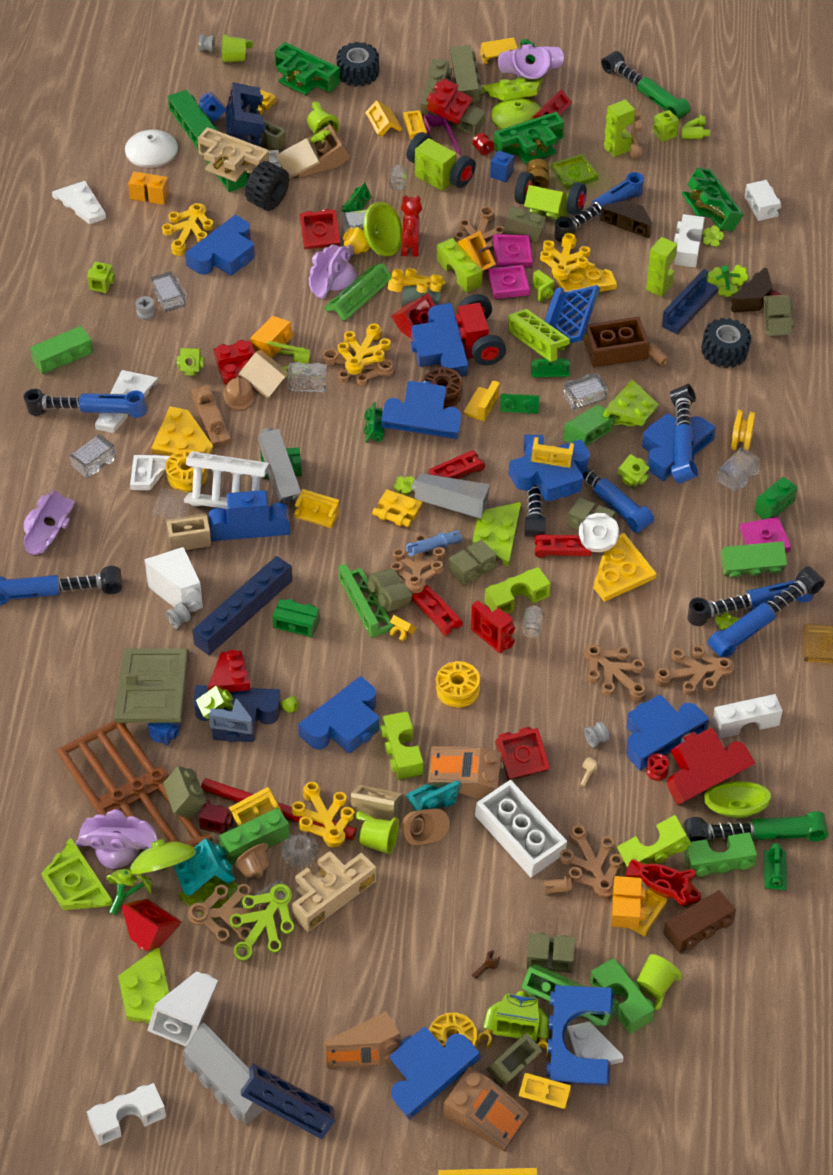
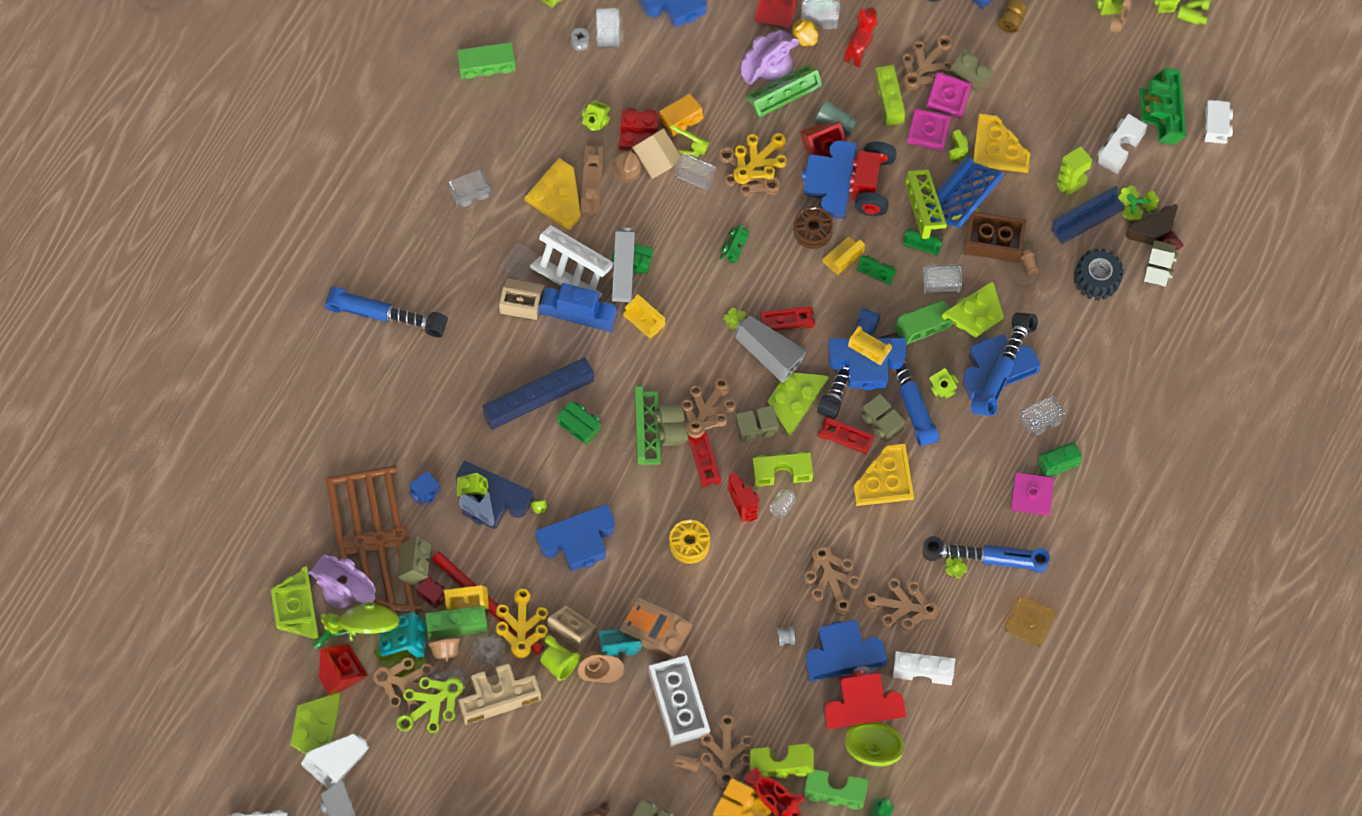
camera: 20 degrees right, 15 degrees up
(40, 535) = (392, 254): lavender piece -> none
(125, 383) = (526, 129): white wing -> none
(130, 403) = (485, 131): blue piece -> none
(147, 471) = (512, 220): white wing -> none
(151, 685) = (428, 445): olive door -> none
(174, 579) = (488, 347): white slope -> none
(178, 615) = (479, 382): light grey wheel -> none
(179, 474) = (539, 224): yellow wheel -> none
(230, 672) = (498, 459): red wing -> none
(383, 229) = (832, 31): lime dish -> none
(399, 504) = (720, 338): yellow plate -> none
(403, 626) = (668, 465): yellow tile -> none
(405, 760) = (617, 566): lime arch -> none
(411, 277) = (859, 105): yellow plant -> none
(422, 412) = (780, 250): blue brick -> none
(441, 540) = (738, 392): medium blue pin -> none
(471, 246) = (910, 96): light orange piece -> none
(522, 753) = (713, 629): red plate -> none
(548, 201) = (1003, 54): brick -> none
(561, 271) = (992, 123): yellow plant -> none
(574, 170) = (1051, 22): clear neon green plate -> none
(591, 767) = (767, 662): tan hand -> none
(599, 532) = (880, 437): white tile -> none
(627, 217) = (1076, 95): dark brown slope -> none
(628, 188) = (1057, 72): piece -> none
(655, 761) = (824, 681): red wheel -> none
(712, 236) = (1148, 146): lime plant -> none
(726, 641) = (942, 587): piece -> none
(743, 430) = (1063, 378): yellow wheel -> none
(753, 559) = (1007, 515): bright green brick -> none
(811, 826) = (925, 792): green piece -> none

